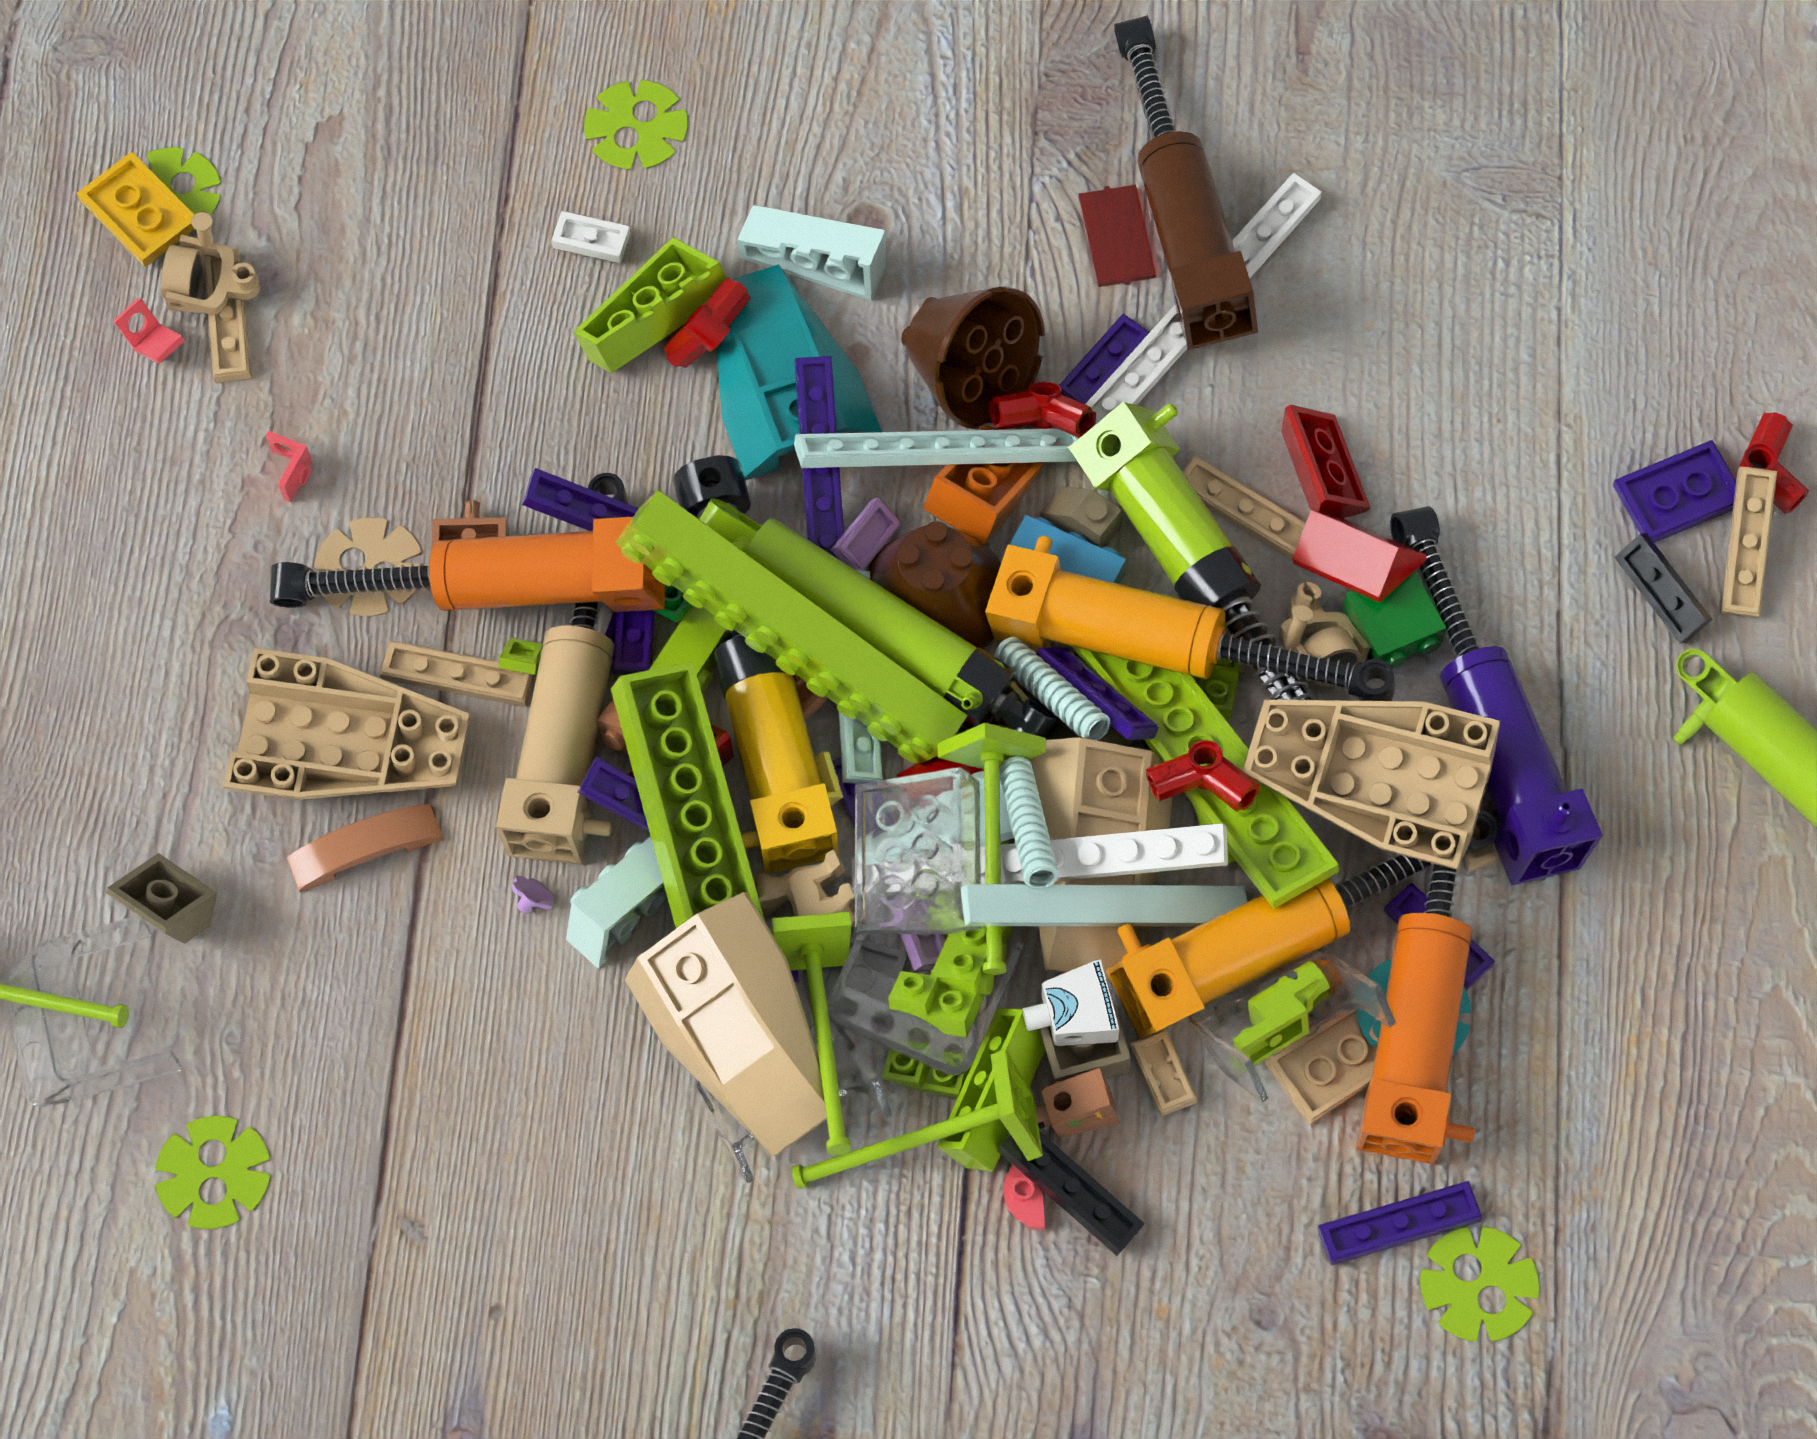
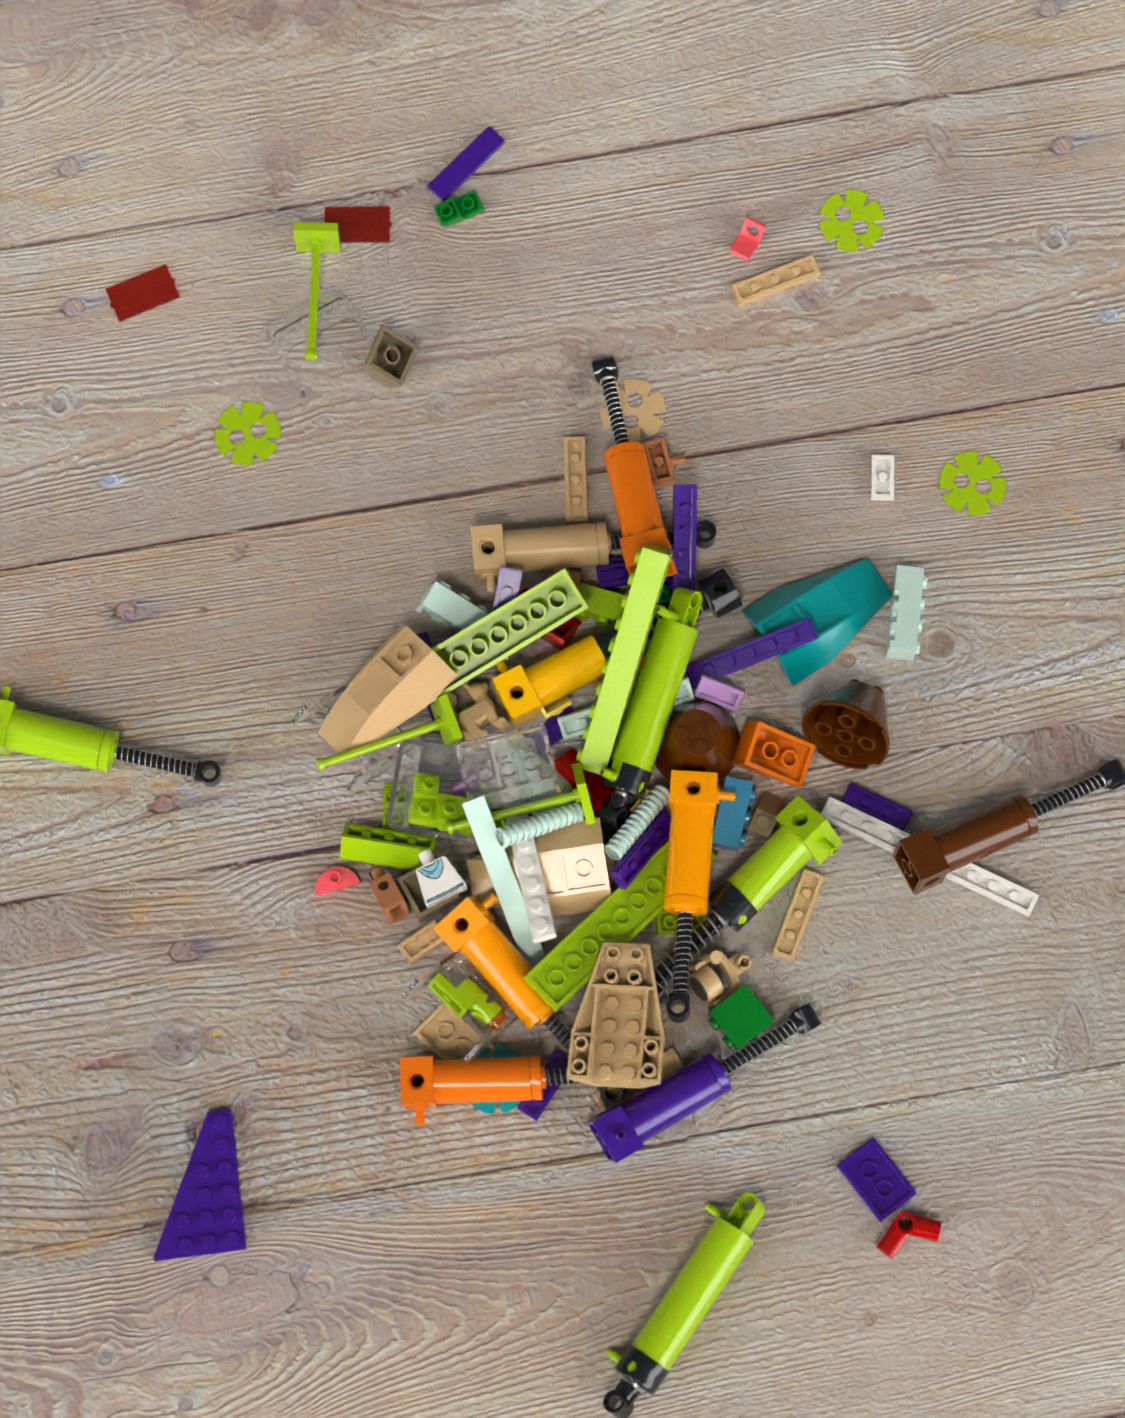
camera: 75 degrees right, 10 degrees up
(137, 208) = (831, 206): yellow plate -> none
(183, 272) = (793, 246): tan piece -> none
(298, 467) = (681, 351): coral bracket -> none
(340, 732) = (515, 424): tan wedge -> none
(362, 842) = (457, 459): nougat slope -> none
(521, 656) = (593, 512): lime tile -> none
(532, 894) = (447, 560): lavender plant -> none
(649, 305) = (839, 525): lime wedge -> none
(707, 324) = (832, 563): red piece -> none
(933, 448) = (782, 719): light aqua tile -> none
(1014, 1108) = (365, 857): lime tile -> none
(1041, 408) = (830, 777): red piece -> none
(1076, 1193) = (340, 903): black plate -> none
(1117, 235) = (969, 795): clear red piece -> none
(1220, 777) = (596, 931): red piece -> none
(1323, 462) = (838, 956): red slope -> none
(1354, 556) = (775, 985): slope -> none
(1399, 1223) = (365, 1095): dark purple tile -> none
(1465, 1314) = (359, 1153): lime piece -> none
(1663, 588) = (804, 1178): black plate -> none
(1748, 542) = (847, 1226): tan tile -> none

